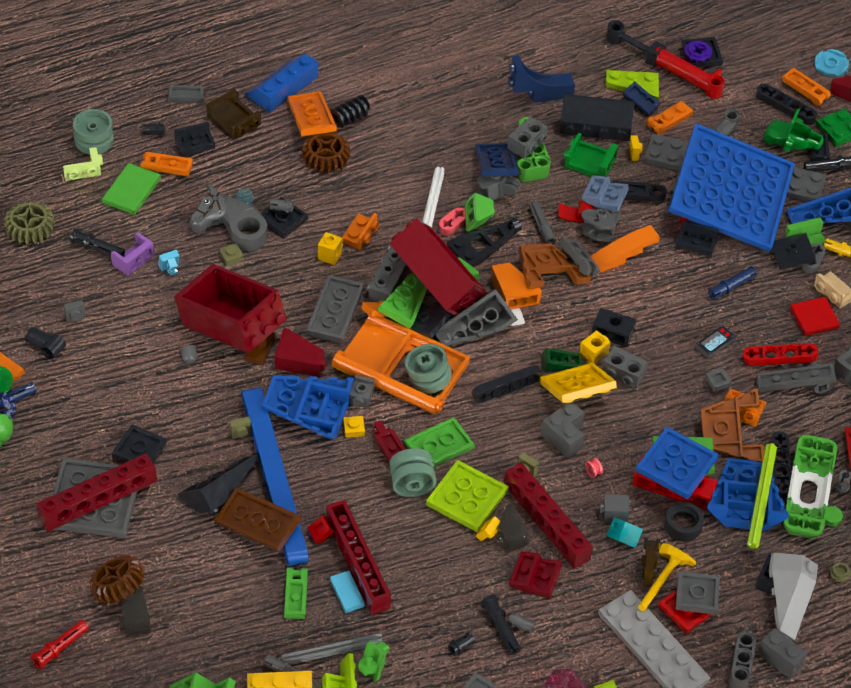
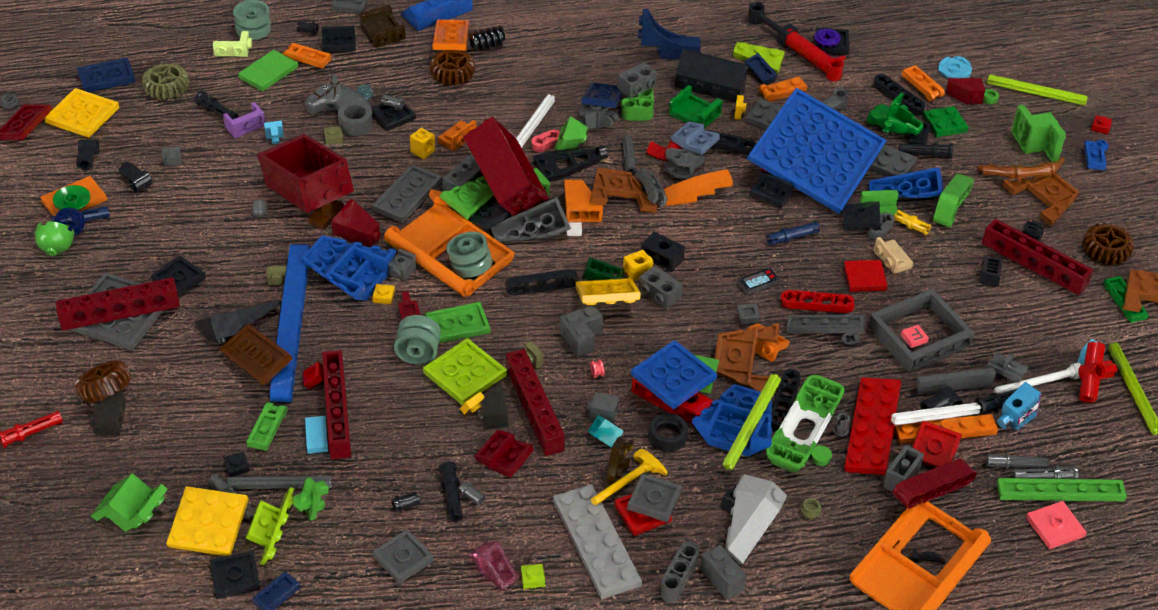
camera: 15 degrees right, 5 degrees down
(281, 639) = (236, 464): none -> black plate

